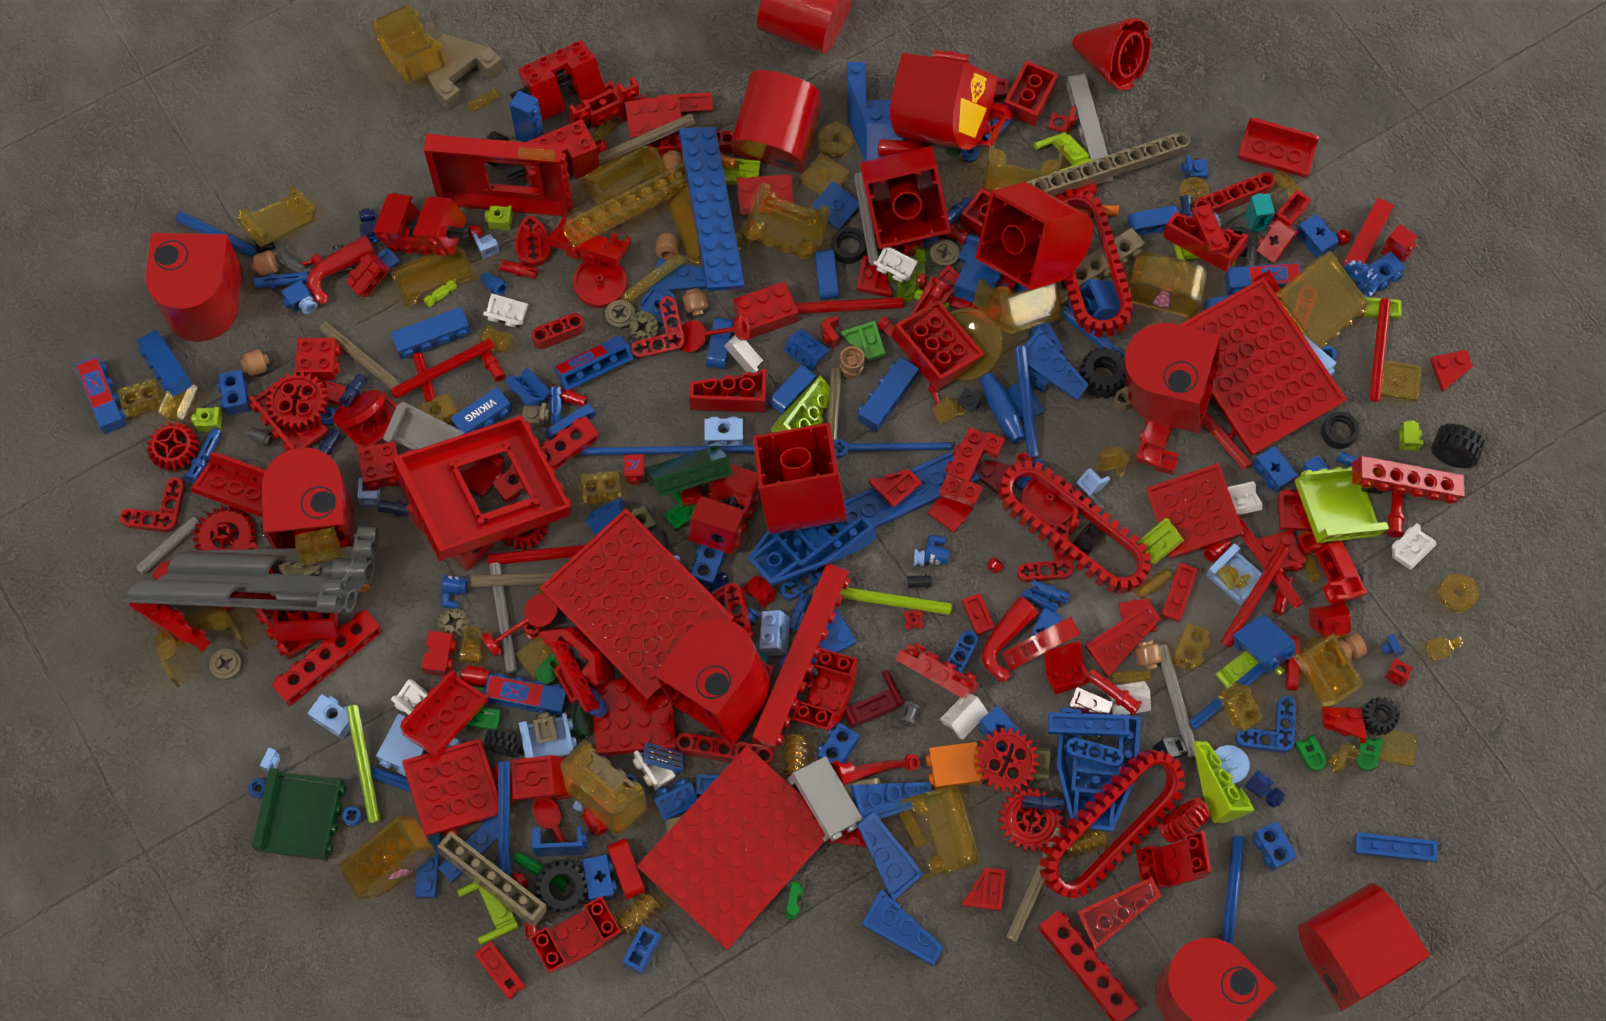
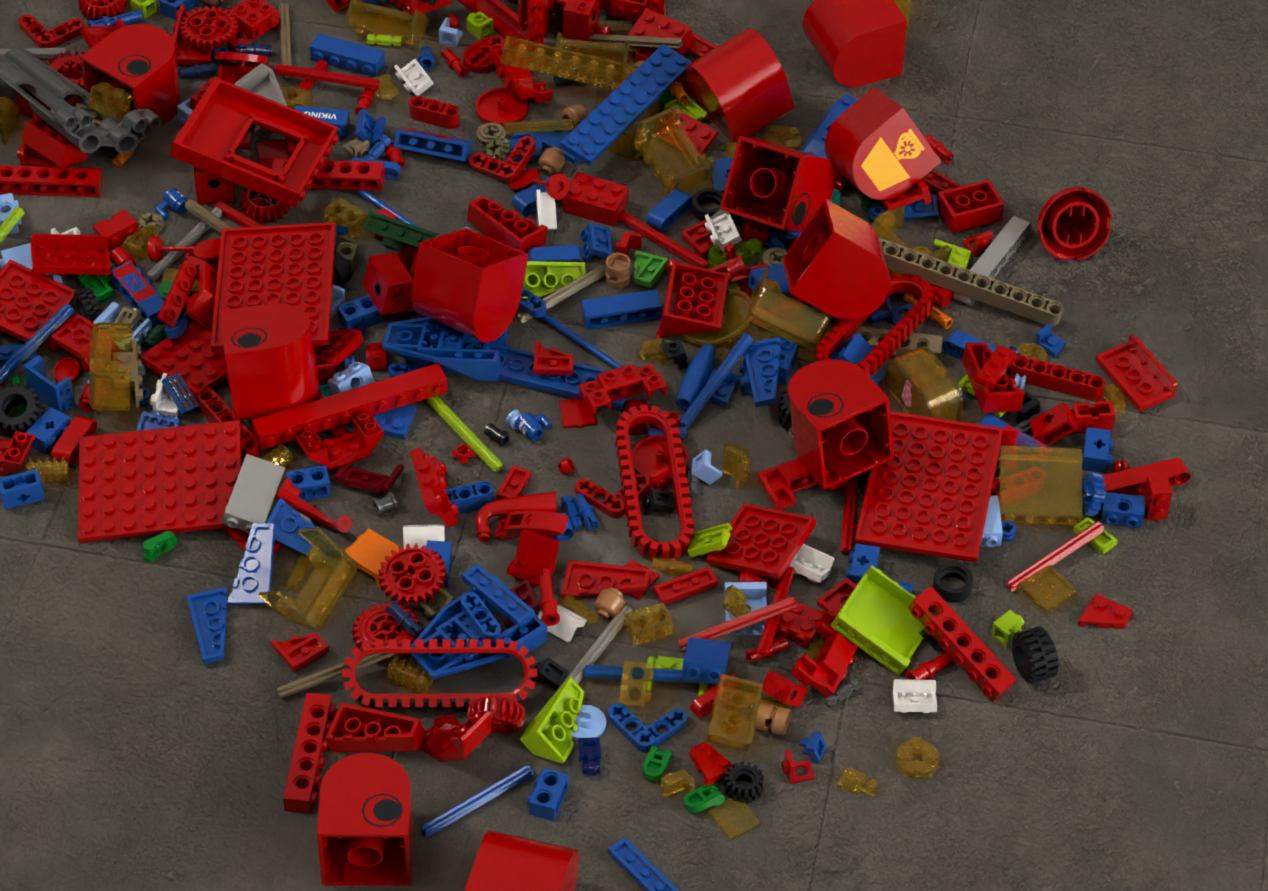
camera: 45 degrees right, 20 degrees down
(1259, 212) = (1062, 390): teal brick -> none

